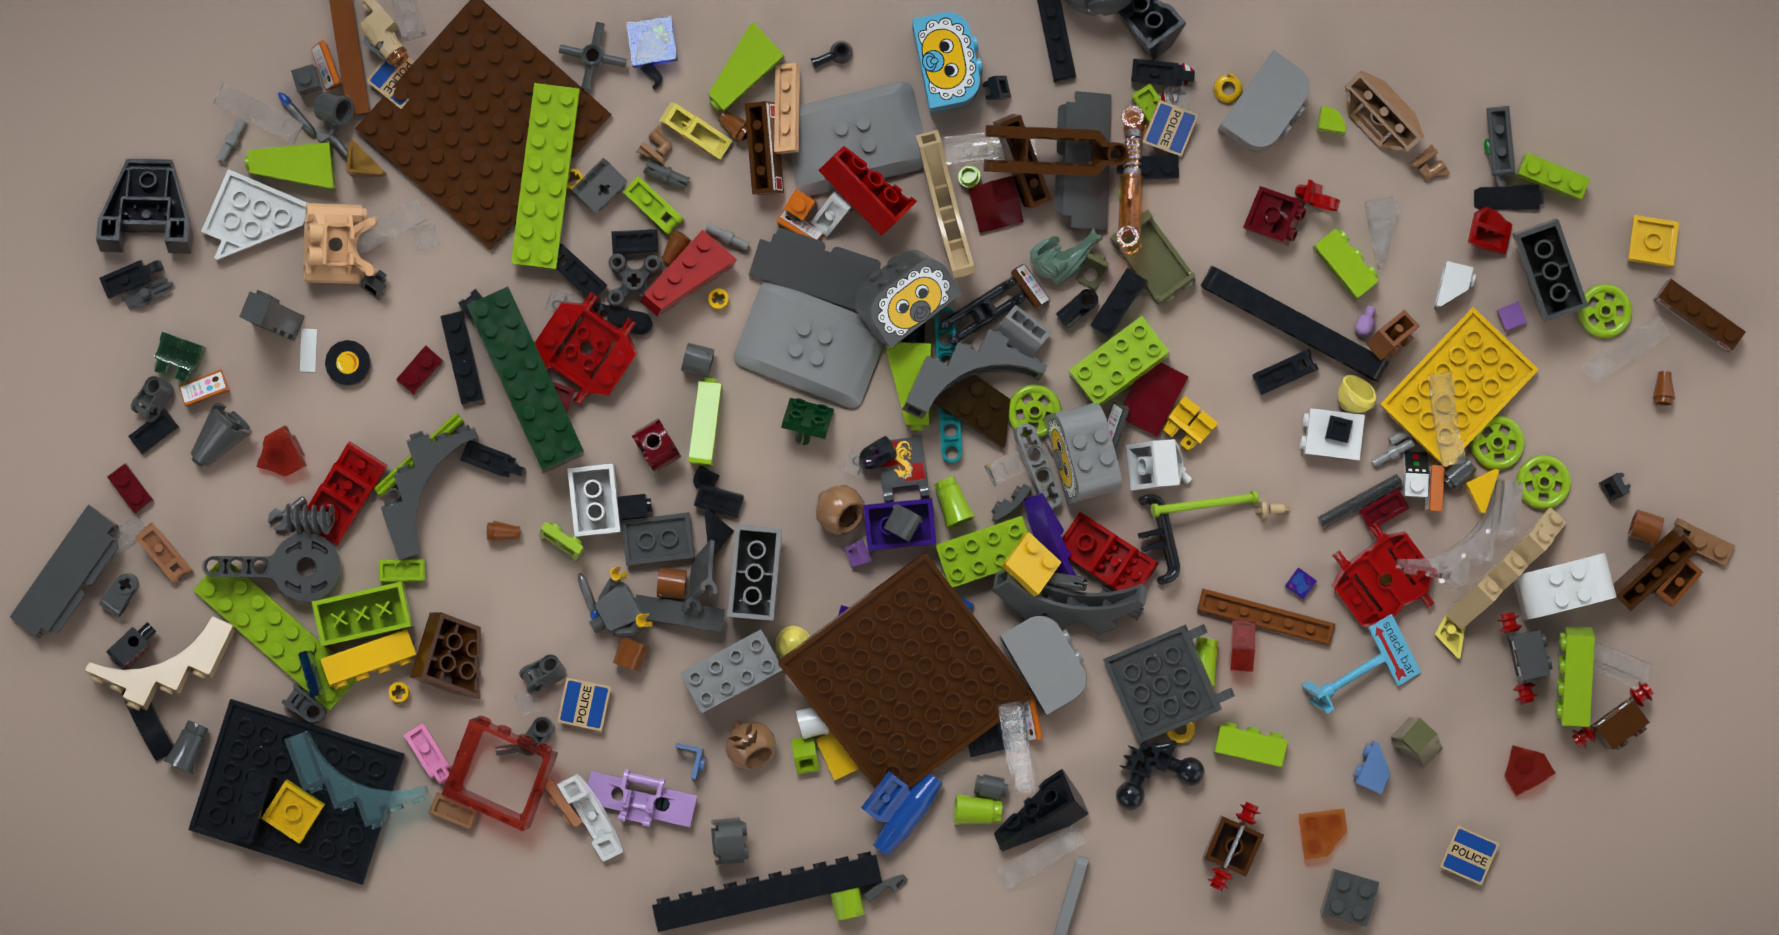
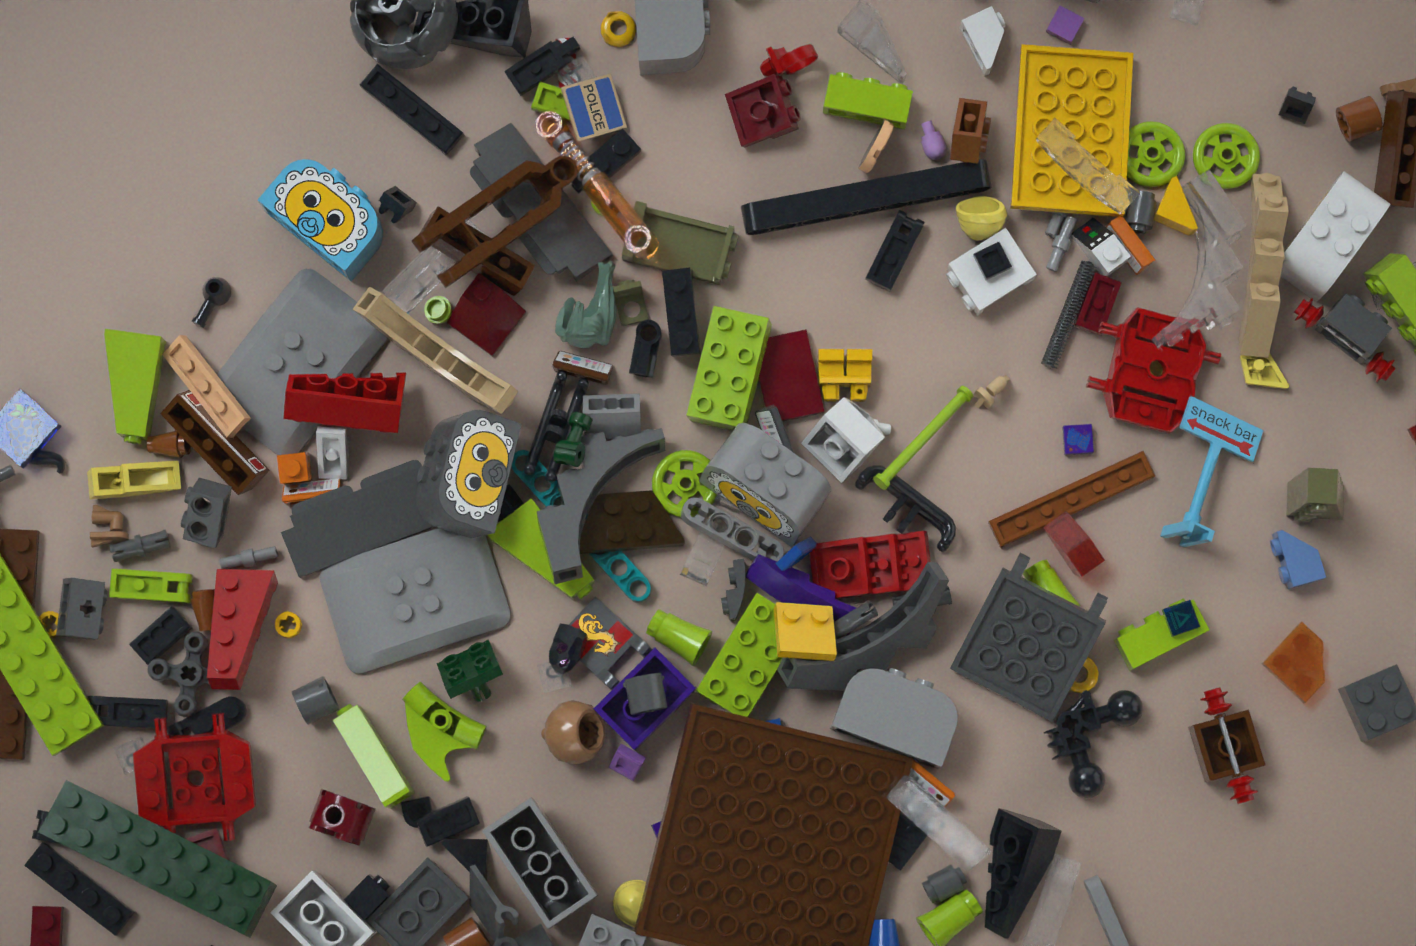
camera: 40 degrees left, 5 degrees down
(724, 189) = (211, 514): none -> dark grey brick
(749, 443) = (434, 741): none -> lime pin
(979, 335) = (571, 450): none -> dark green leg
(1065, 512) = (796, 554): none -> blue tile
(1270, 745) = (1180, 618): none -> tile
(1326, 297) = (876, 146): none -> light nougat tile

